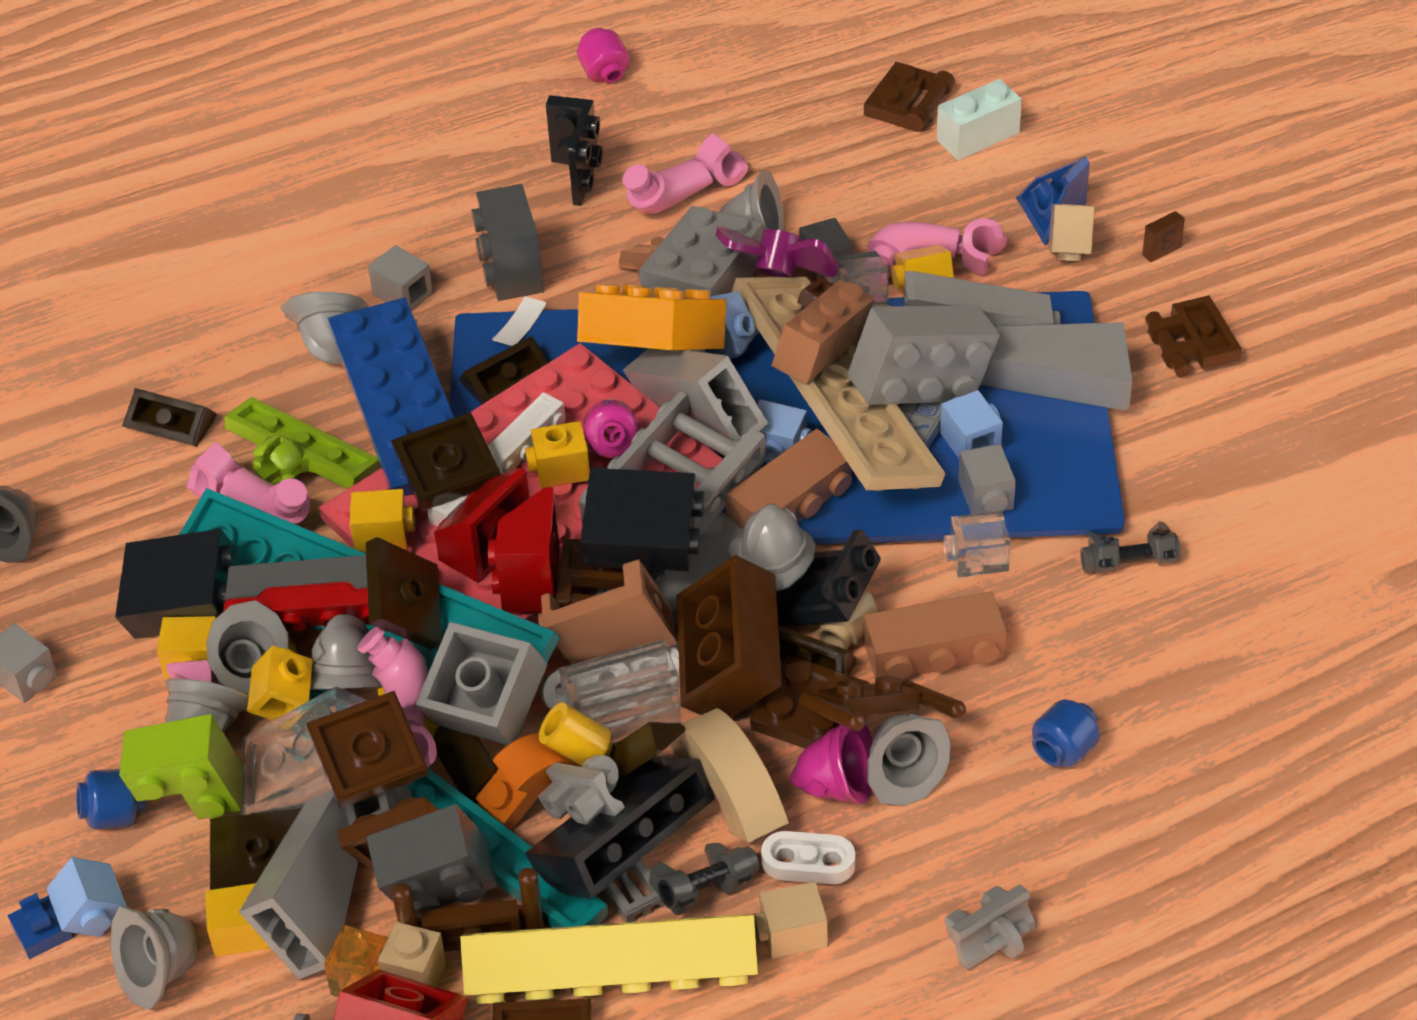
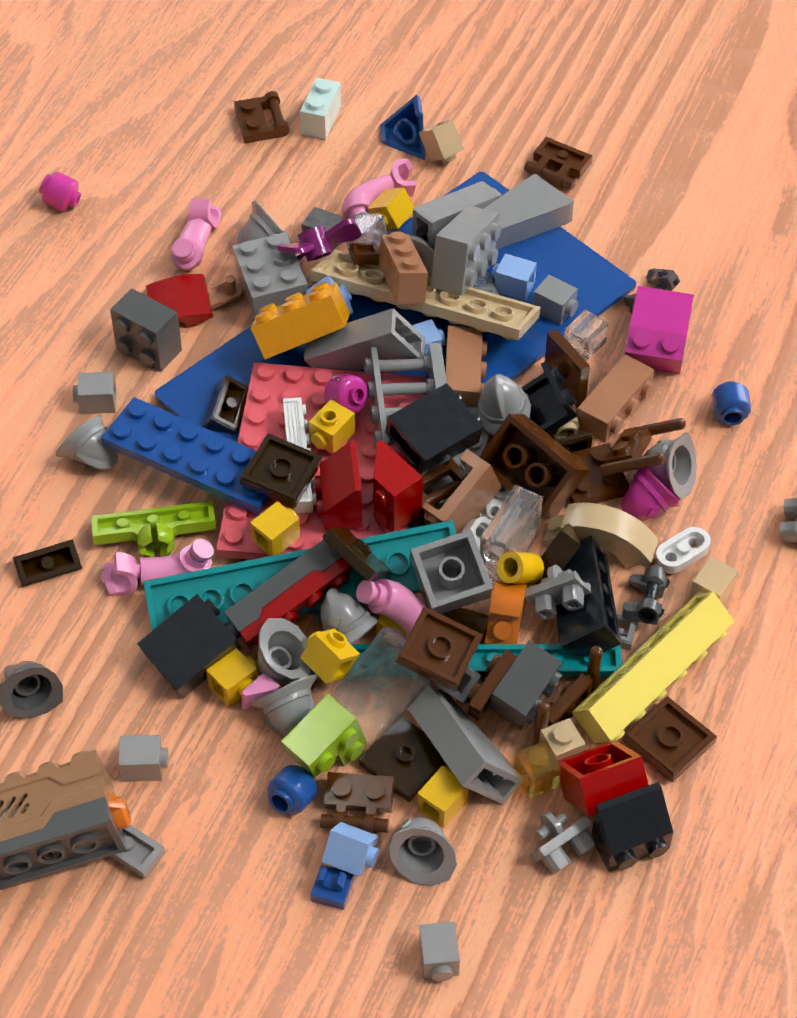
camera: 45 degrees left, 5 degrees up
(167, 851) = (358, 793): none -> reddish brown plate
(521, 321) = (198, 373): white sticker -> none
(573, 140) = (111, 245): black bracket -> none
(592, 237) = (185, 295): none -> red slope
(903, 559) = (571, 364): none -> reddish brown plate
(1072, 590) = (659, 328): none -> dark pink slope
(1163, 236) = (486, 118): reddish brown tile -> none

